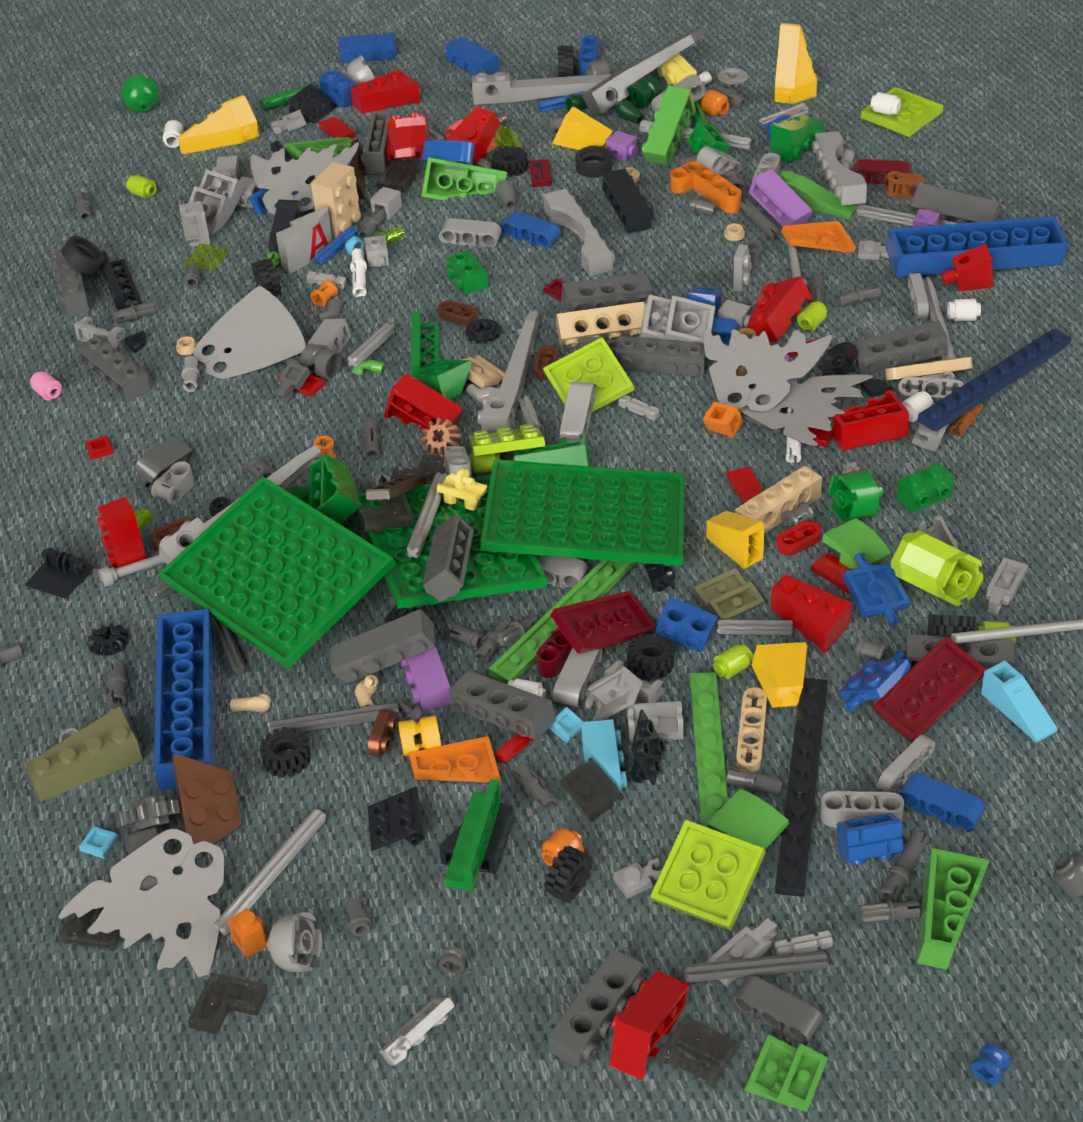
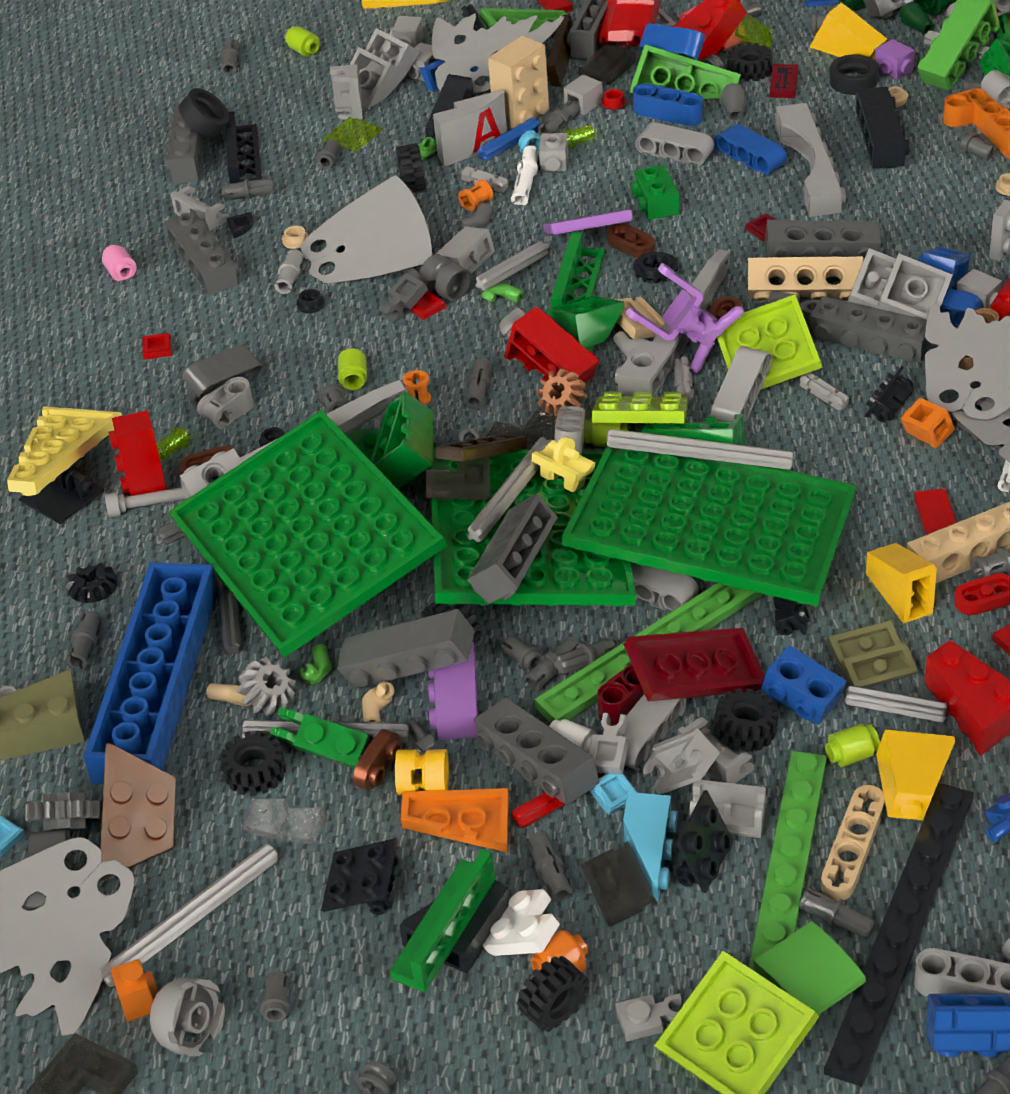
camera: 15 degrees right, 0 degrees up
(48, 535) = (56, 444): none -> light yellow wing
(215, 394) = (310, 301): none -> black plate
(267, 443) = (352, 369): none -> lime brick
(278, 693) = (266, 686): none -> light grey gear
(313, 673) = (320, 669): none -> bright green arm
(319, 792) = (277, 821): none -> clear slope
(334, 724) = (322, 738): none -> green hinge
(381, 390) = (507, 322): none -> light grey arm
(410, 203) = (613, 99): none -> red plate
(420, 303) = (587, 222): none -> medium lavender tile
(455, 202) = (668, 104): none -> blue beam
(523, 365) = (688, 318): none -> medium lavender piece
(529, 832) = (523, 925): none -> white plate
(558, 691) = (611, 747): none -> light grey plate
(563, 463) = (699, 449): none -> light grey axle
(689, 407) = (894, 393): none -> black hinge

